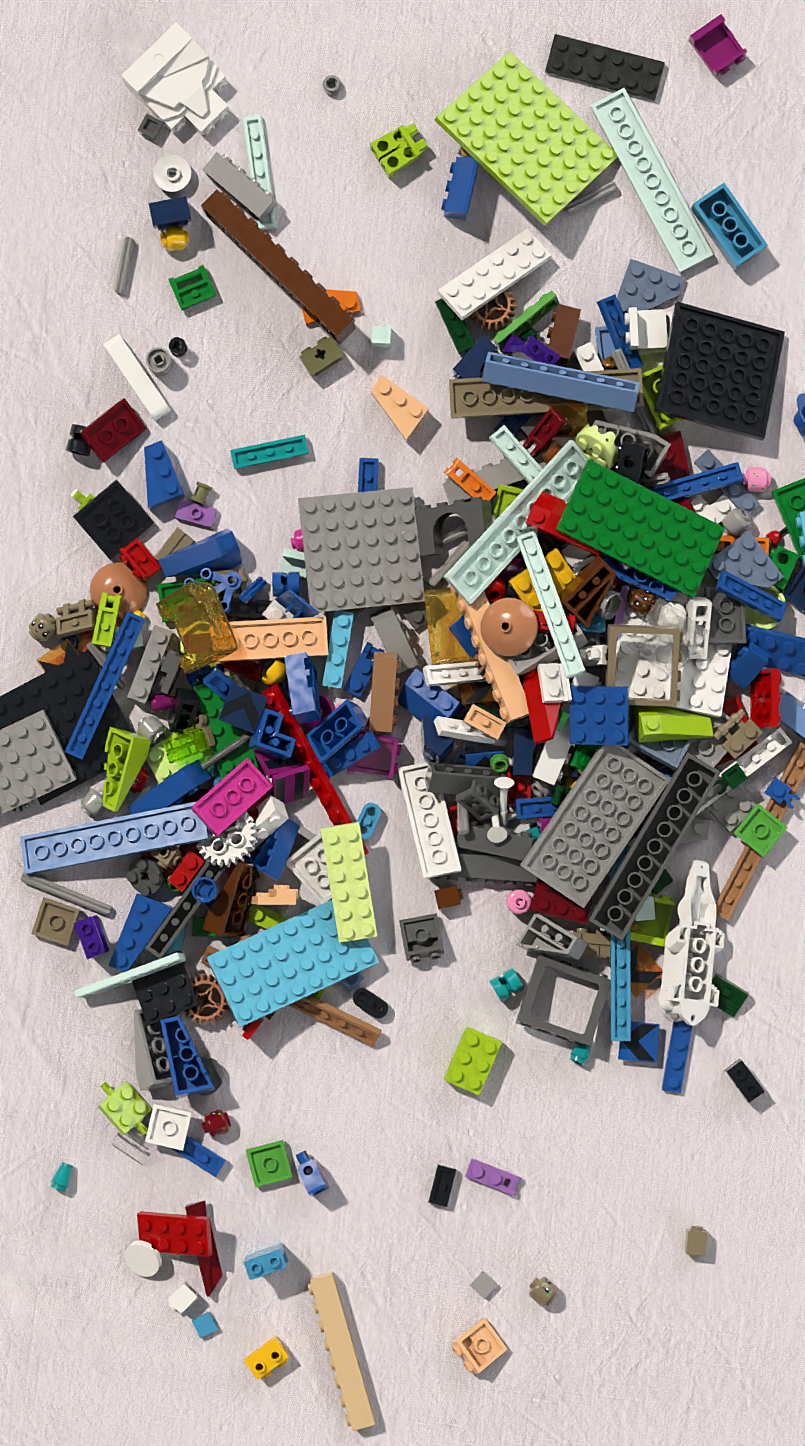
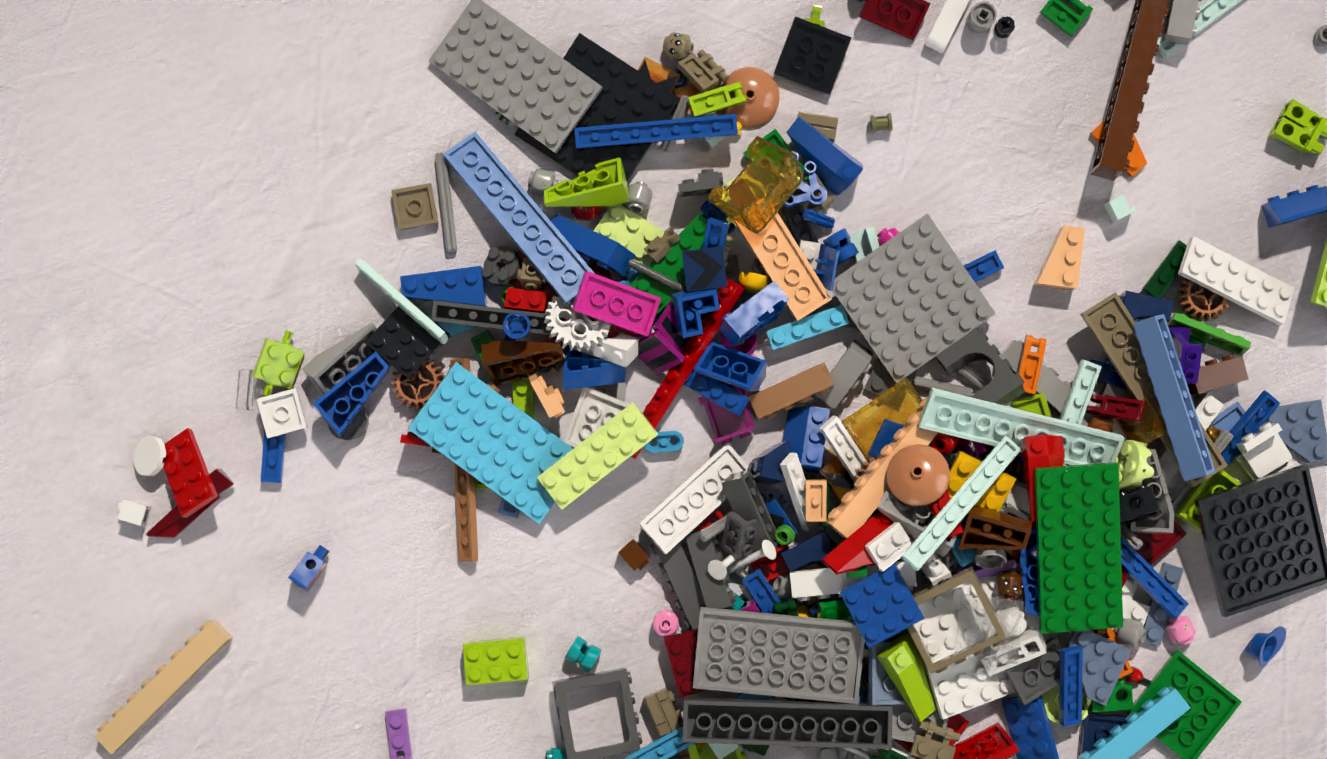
camera: 65 degrees right, 0 degrees up
(62, 1177) = (184, 341): teal cone -> none
(91, 937) = (417, 246): dark purple panel -> none
(140, 560) = (788, 100): red bracket -> none
(149, 665) = (692, 163): light grey brick -> none
(160, 476) = (875, 78): blue wedge -> none
(160, 703) = (669, 194): magenta cone -> none
(182, 710) = (671, 216): black brick -> none
(185, 745) = (641, 235): clear neon green brick -> none
(195, 513) = (859, 128): medium lavender plate -> none
(204, 1324) = (120, 546): dark azure tile -> none
(216, 1123) = (309, 455): dark red head -> none
(248, 668) = (743, 253): clear red plate -> none
(265, 1261) = (206, 570): dark azure panel -> none
(266, 1358) = (119, 620): yellow brick -> none
(269, 452) = (954, 164): teal plate -> none
(269, 1163) = (299, 524): bright green plate -> none
(316, 366) = (1058, 163): olive brick -> none
(362, 672) = (798, 361): blue plate -> none
(370, 1003) = (497, 536): black plate -> none
(421, 938) = (583, 551): dark grey plate -> none
(442, 1185) = (365, 695): black plate -> none
(551, 939) = (647, 671): light grey wedge -> none
(747, 664) = (1004, 716): blue brick -> none

